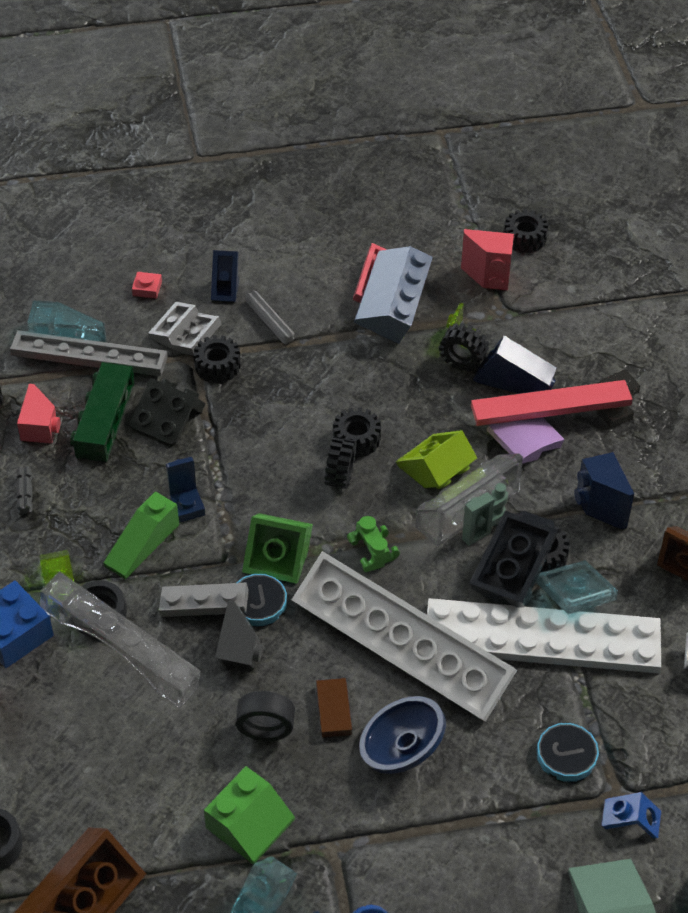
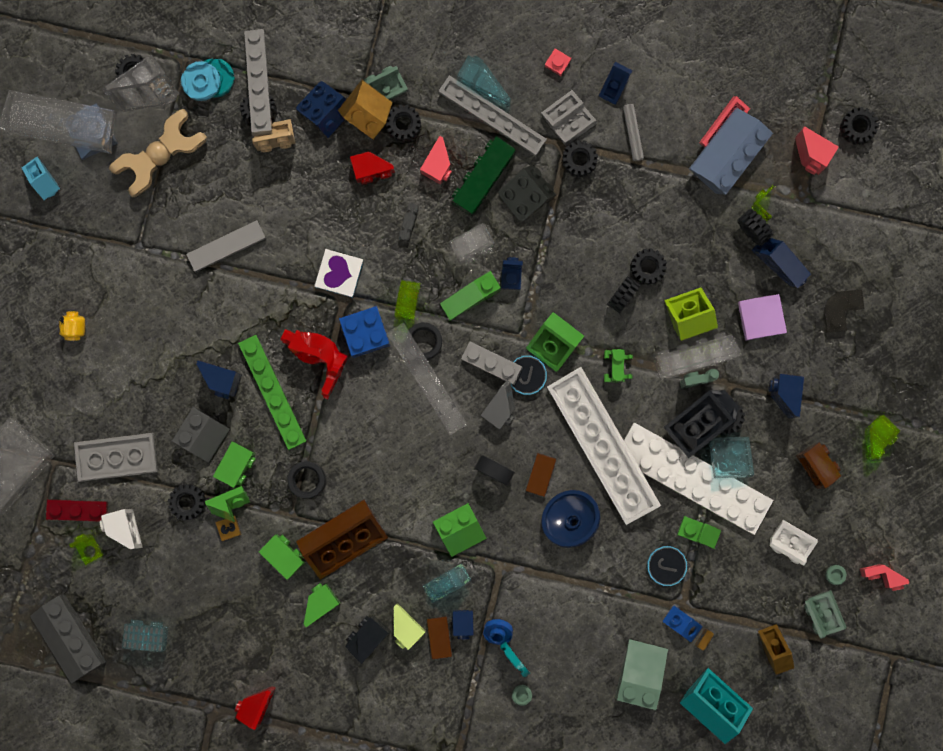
camera: 25 degrees right, 35 degrees up
(118, 482) = (472, 244): none -> clear brick
(551, 402) = (791, 303): coral tile -> none
(588, 694) = (699, 532): none -> bright green slope
(673, 820) = (704, 639): none -> pearl gold tile

